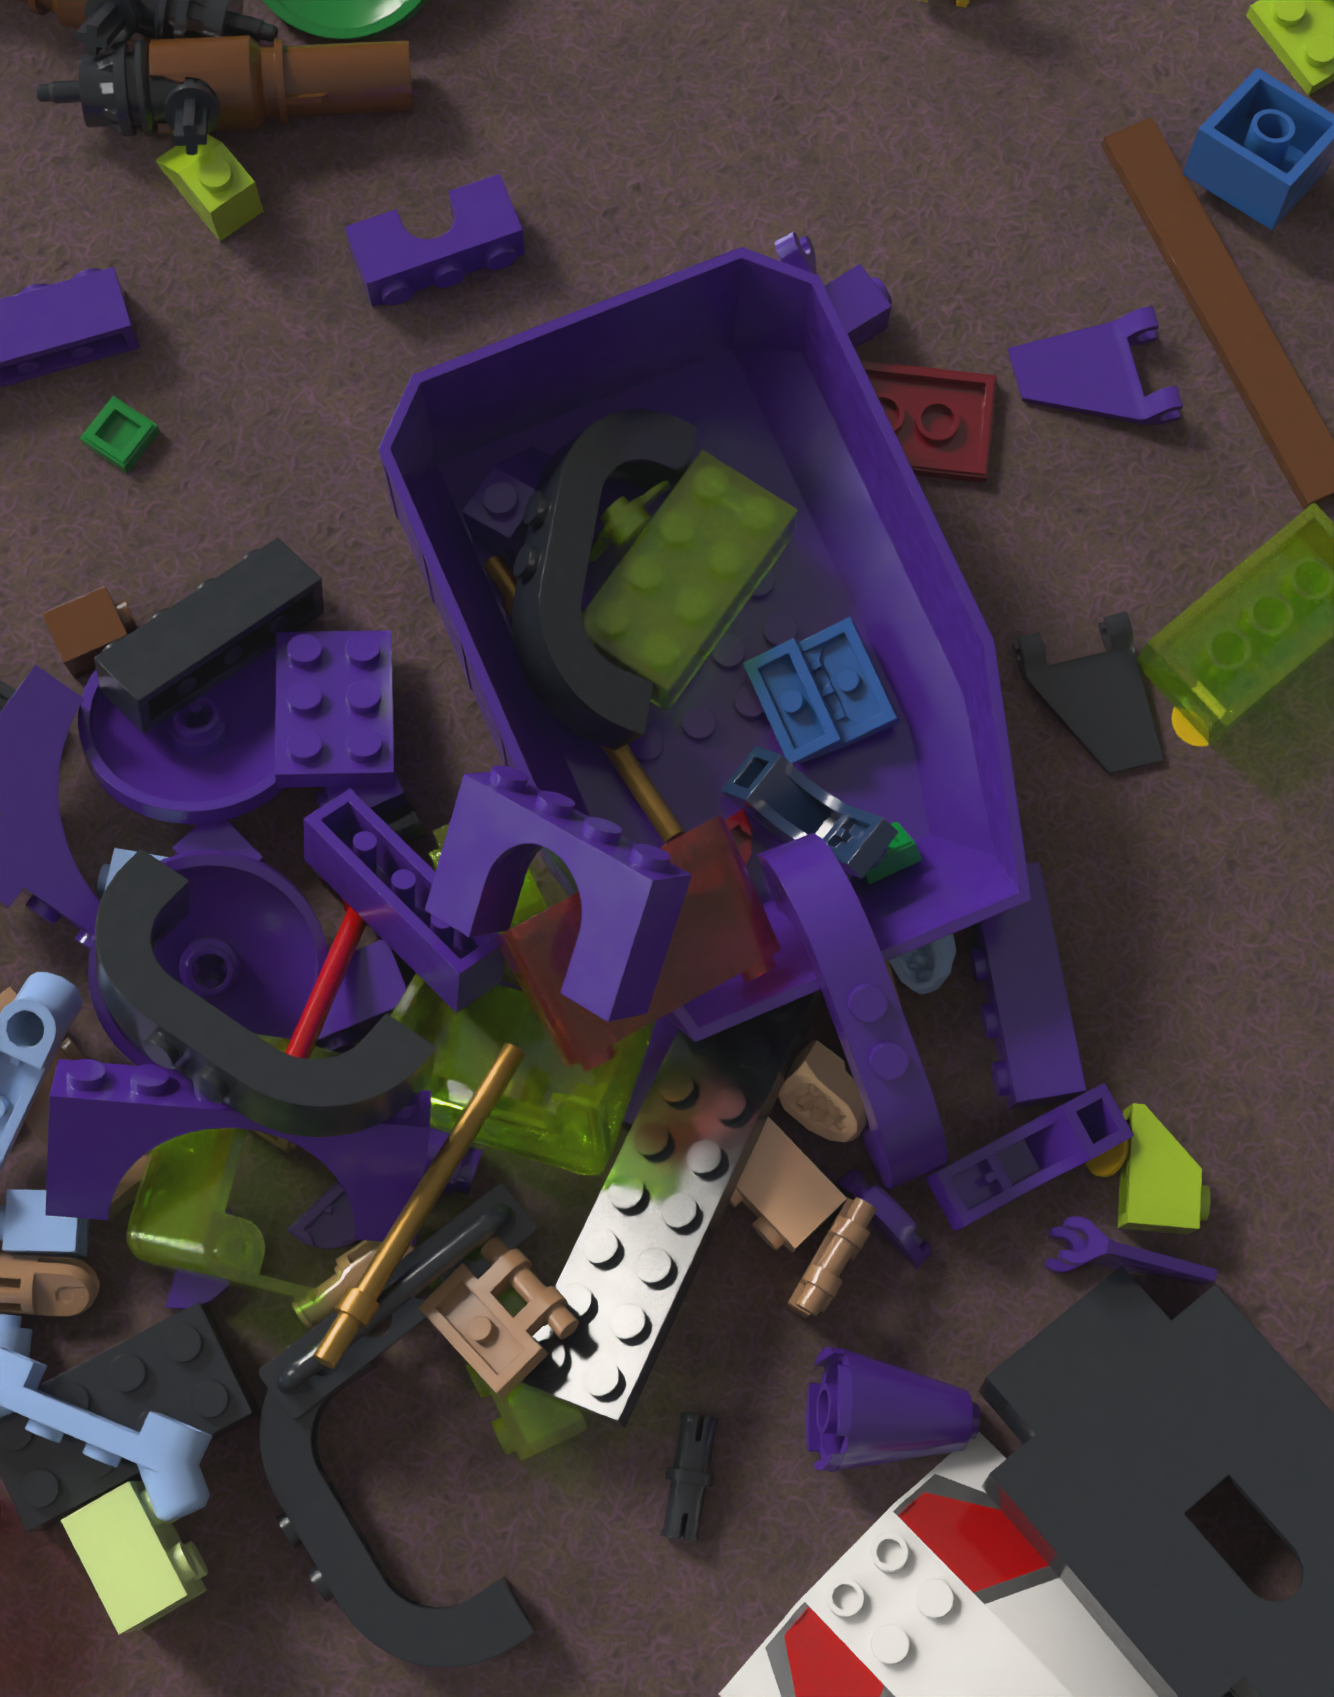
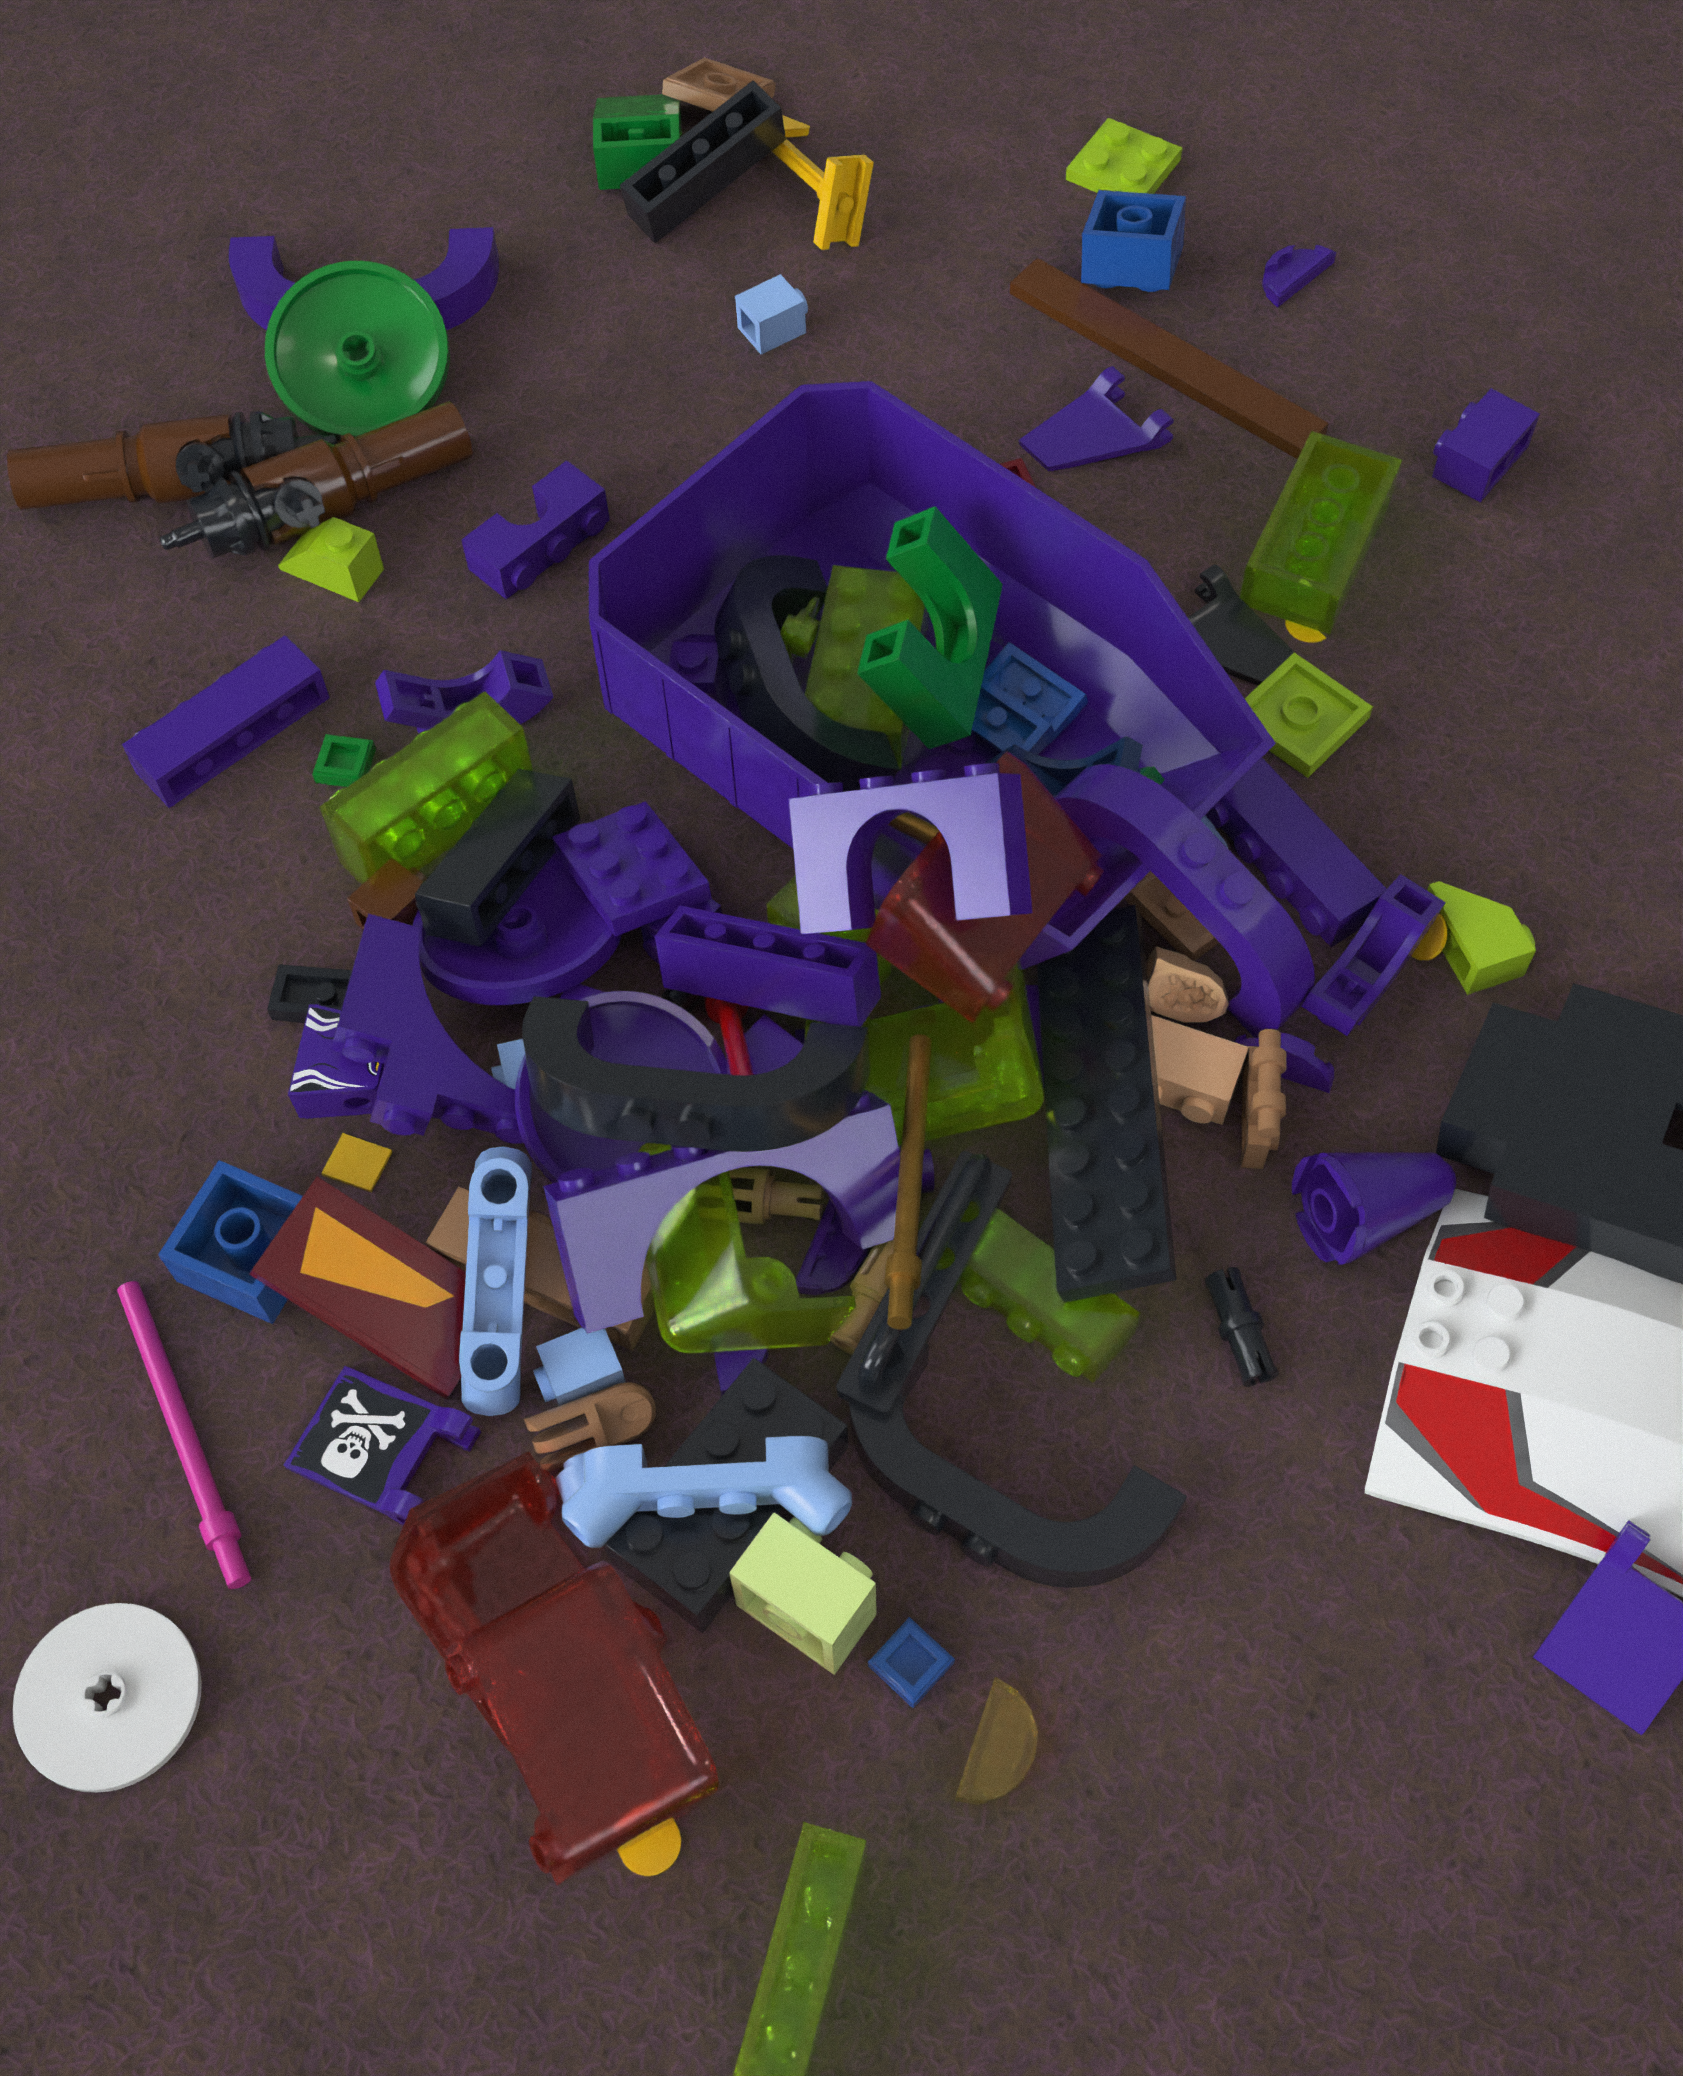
camera: 20 degrees left, 15 degrees down
(171, 527) = (427, 791): none -> clear neon green brick
(213, 1653) = (911, 1662): none -> blue tile
(264, 430) = (511, 679): none -> dark purple arch
(485, 1330) = (1016, 1255): medium nougat plate -> none
(813, 560) = (927, 686): none -> green arch
(818, 66) = (771, 313): none -> light blue brick
(1104, 1251) = (1480, 988): dark purple flag -> none
(1122, 832) = (1306, 713): none -> lime plate

